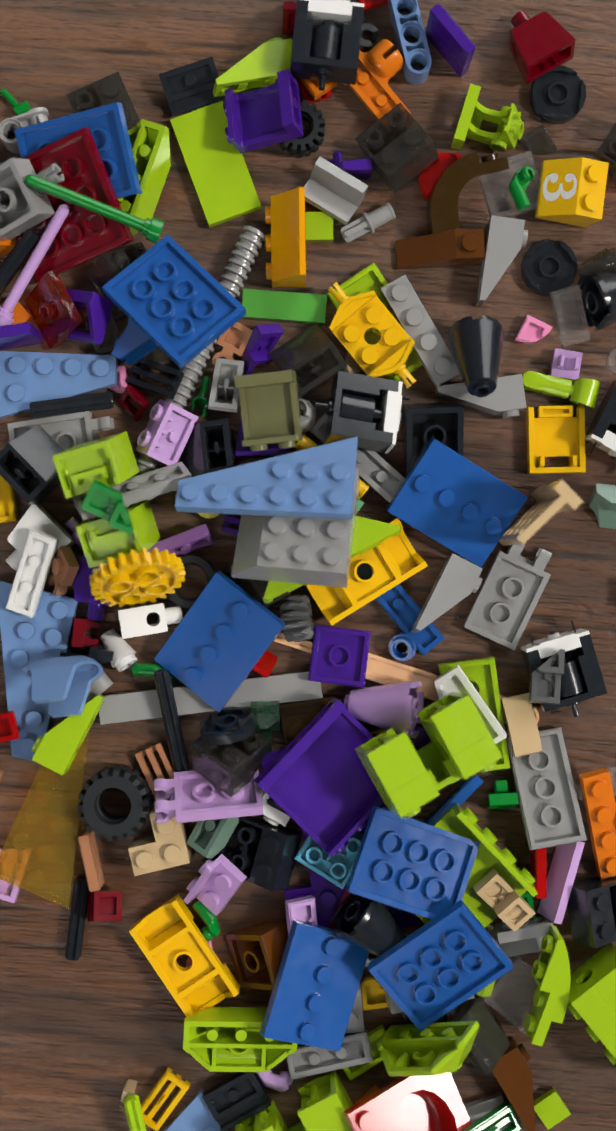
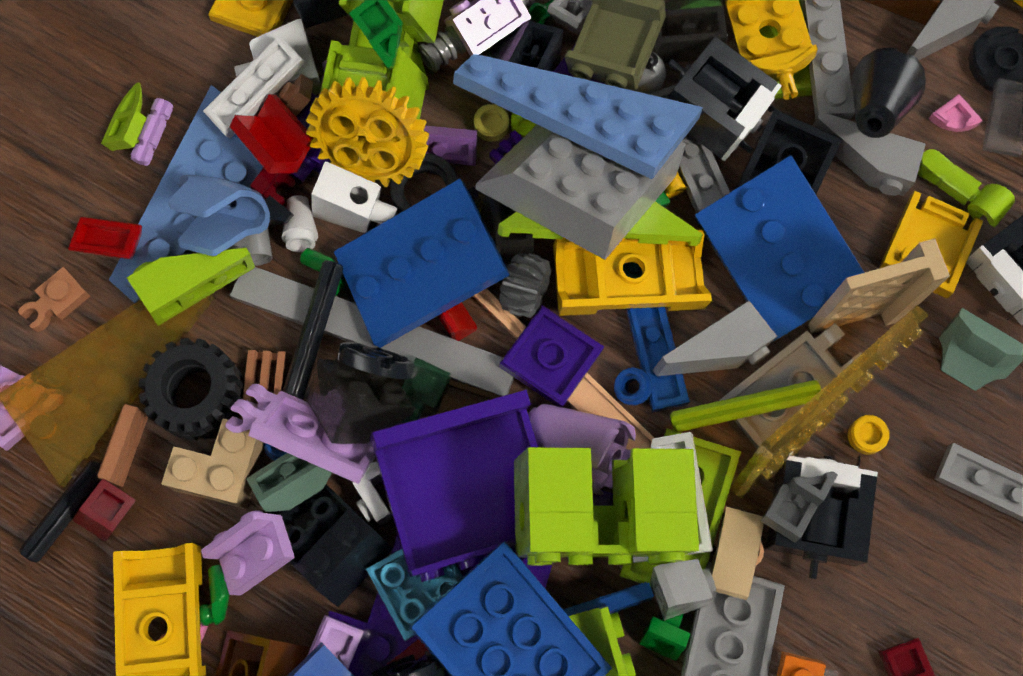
camera: 25 degrees right, 15 degrees down
(67, 605) = (274, 136): none -> red panel
(143, 487) = (430, 50): light grey plate -> none
(483, 625) = (744, 406): none -> lime axle
(503, 774) = (682, 587): none -> light grey slope
(538, 603) = (828, 402): none -> clear yellow wing
(565, 364) = (982, 165): lavender tile -> none
(571, 598) = (868, 434): none -> yellow tile

